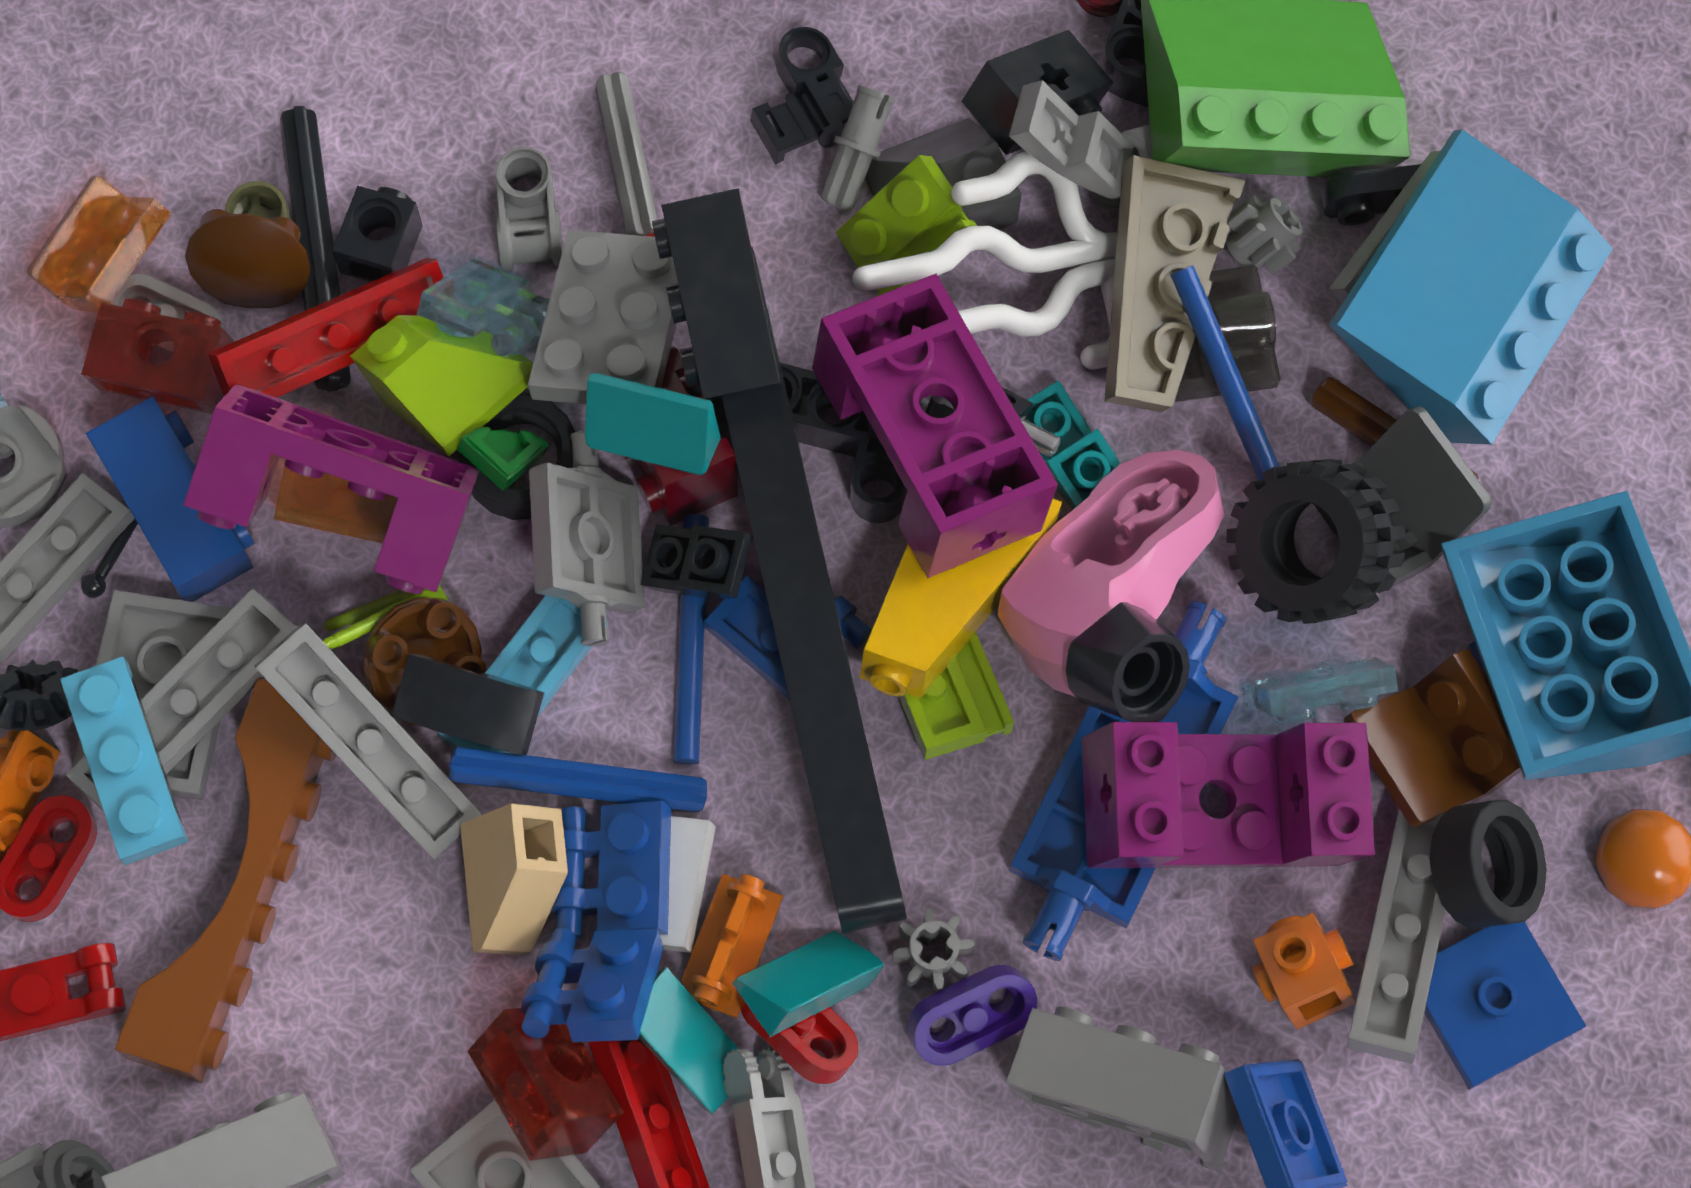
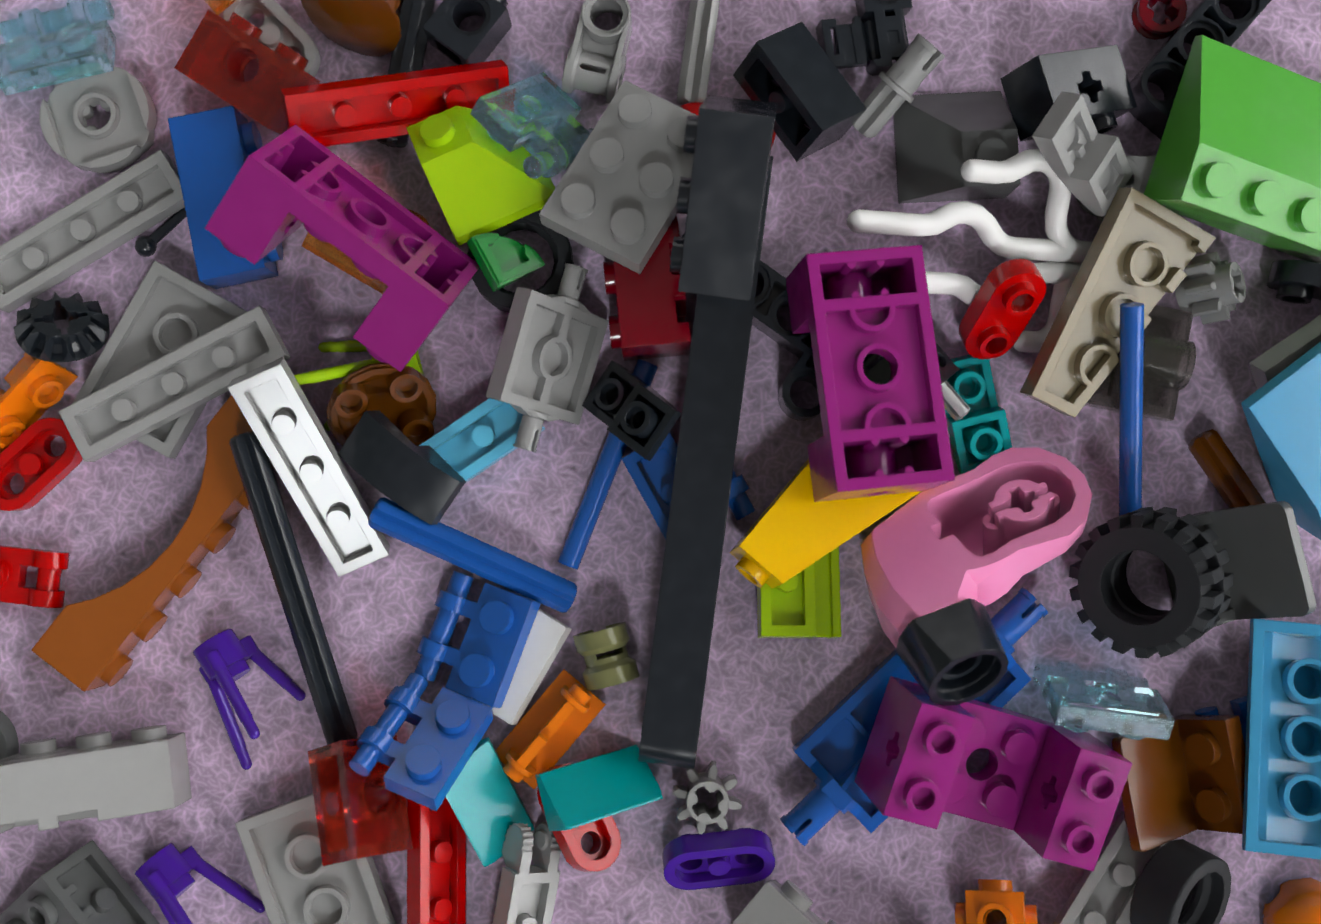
camera: 20 degrees right, 15 degrees up
(124, 760) = (105, 418): medium azure plate -> none
(338, 998) = (223, 663): none -> dark purple plant
(385, 874) = (293, 587): none -> black axle
(512, 875) = (393, 617): tan slope -> none
(650, 424) = (627, 291): teal slope -> none
(764, 837) = (608, 668): none -> olive wheel
(776, 185) = (808, 93): none -> black brick
(904, 218) = (912, 171): lime plate -> none
(1051, 328) = (1002, 308): none -> red plate

